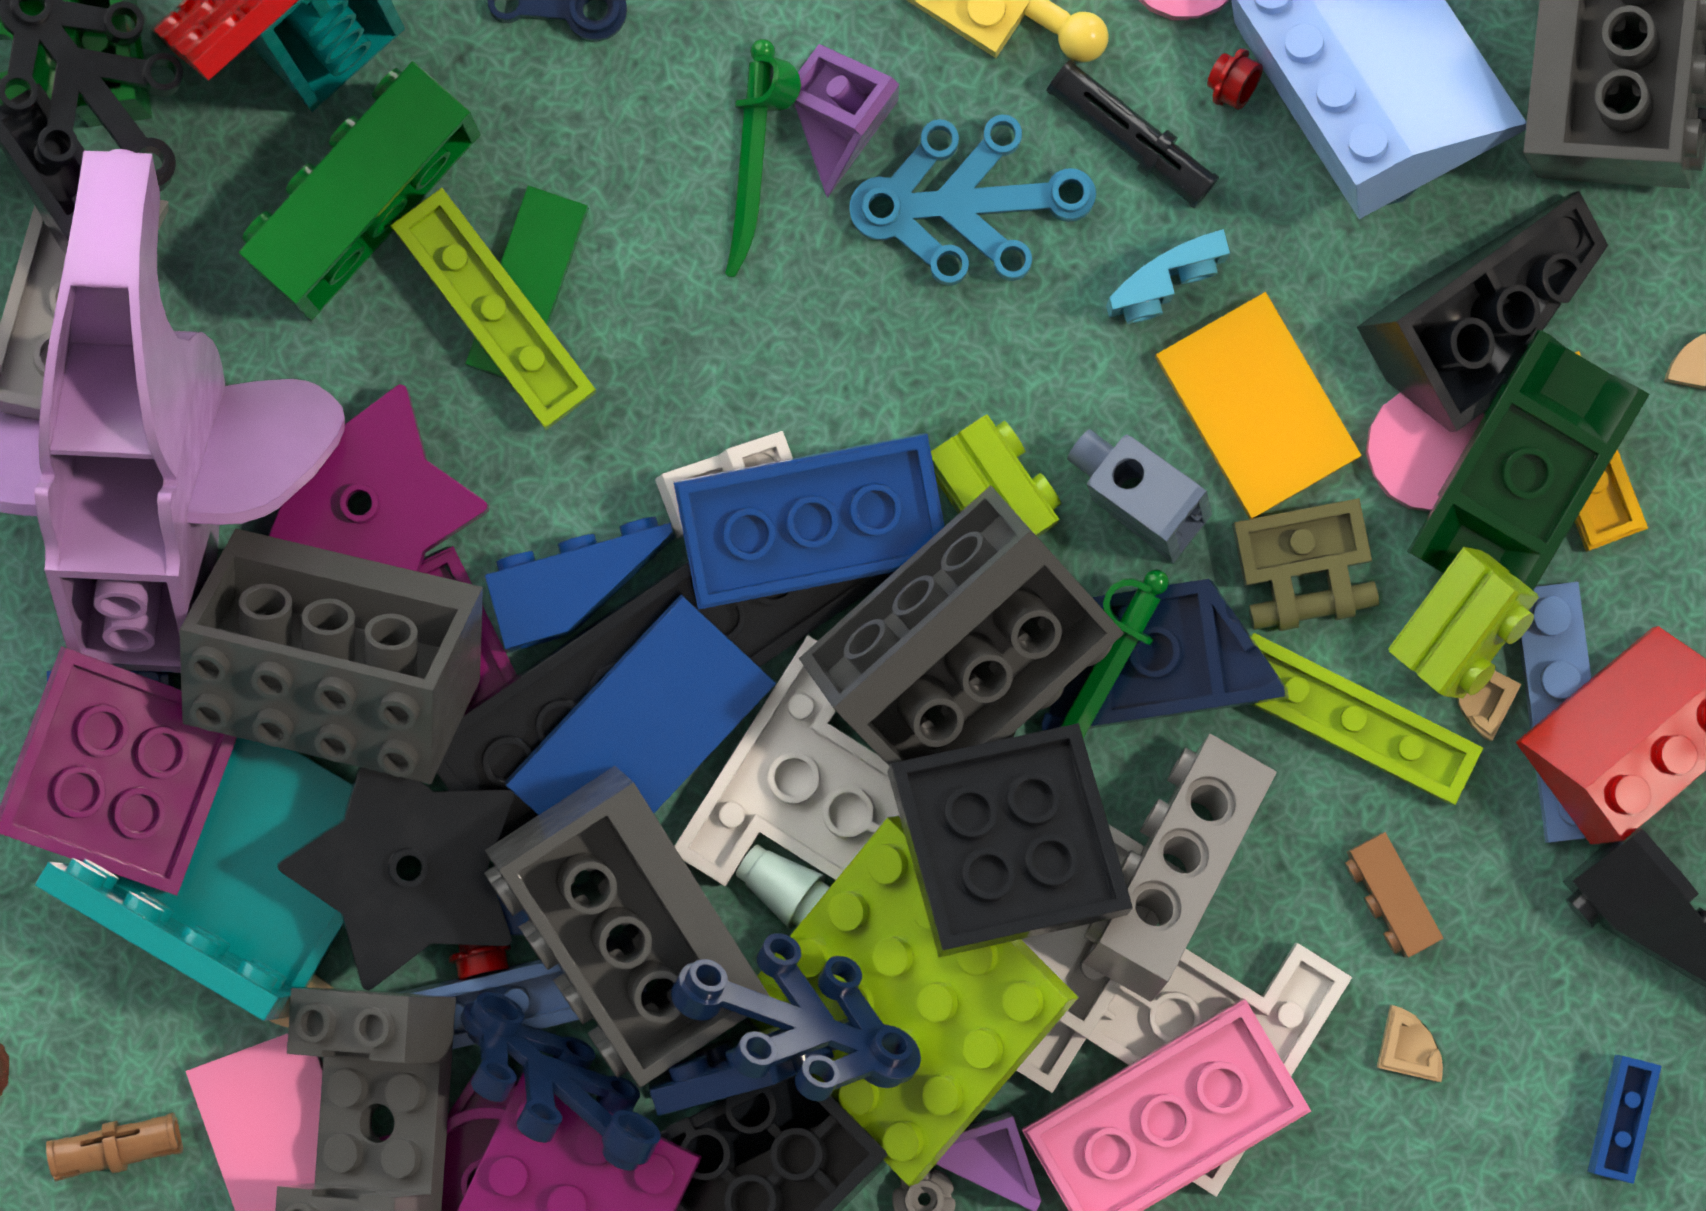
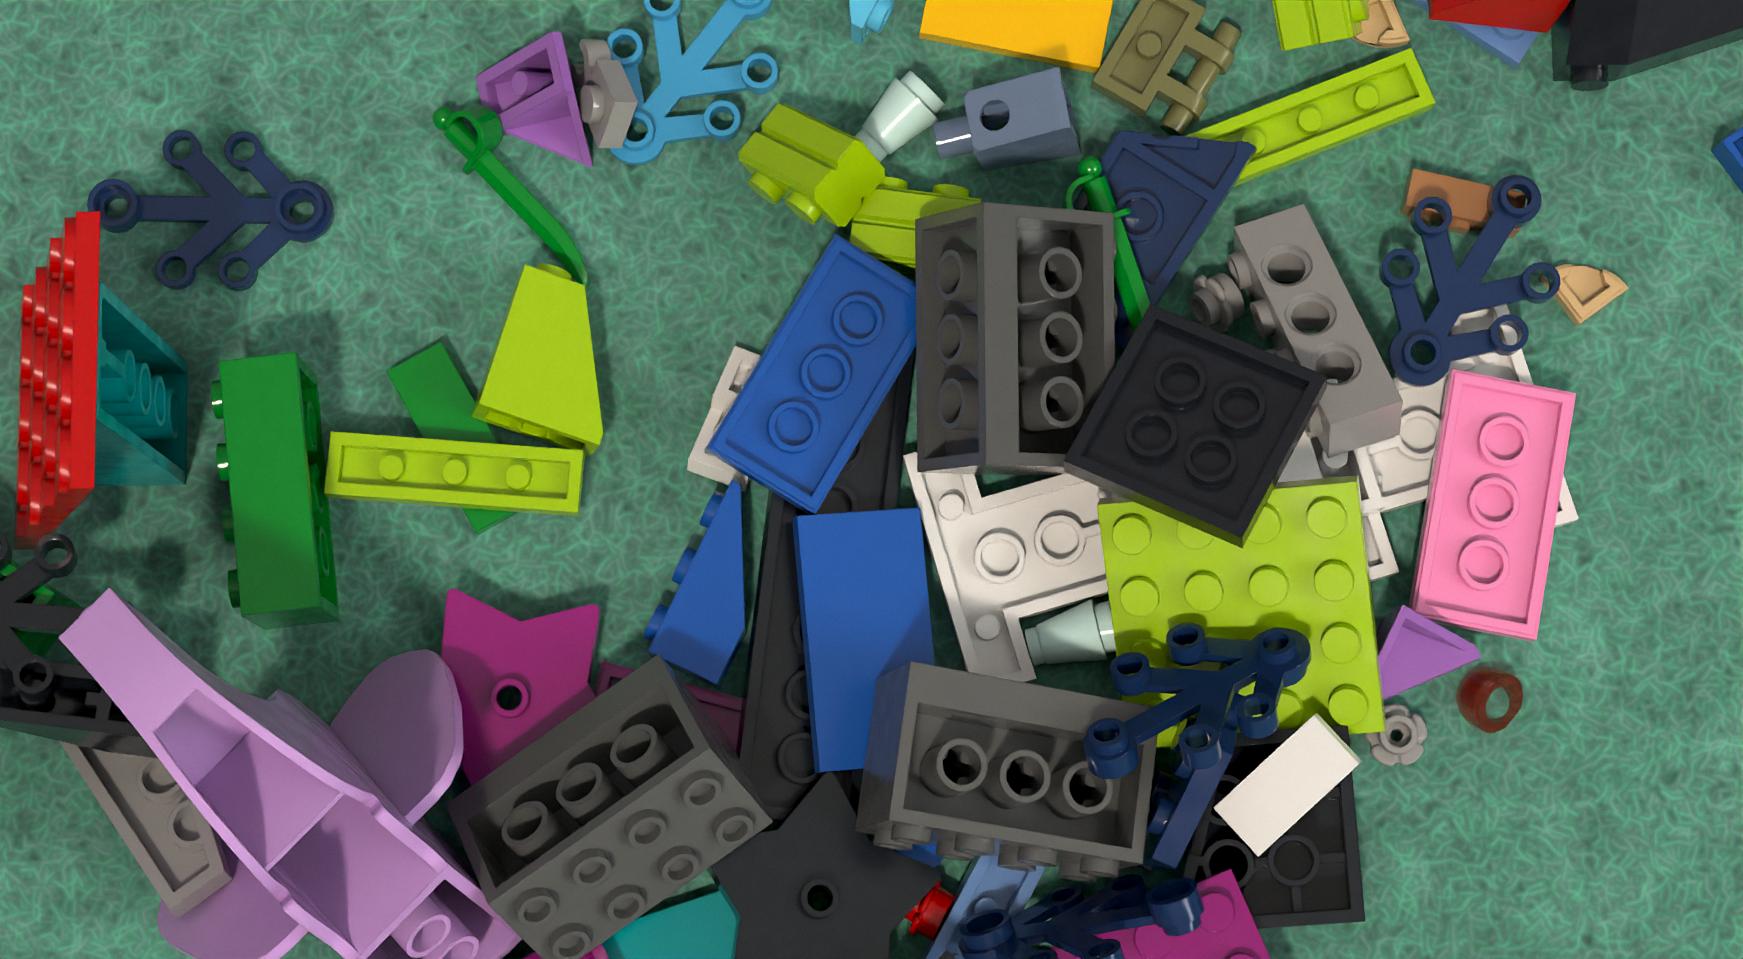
camera: 50 degrees left, 5 degrees down
(637, 299) = (544, 364): none -> lime slope
(800, 1146) = (1287, 784): none -> white slope
(883, 162) = (605, 95): none -> light grey plate
(968, 366) = (810, 166): none -> lime brick
(1074, 397) = (899, 115): none -> light aqua cone
(1142, 770) = (1216, 302): none -> light grey plate
(1315, 950) = (1459, 290): none -> dark blue plant

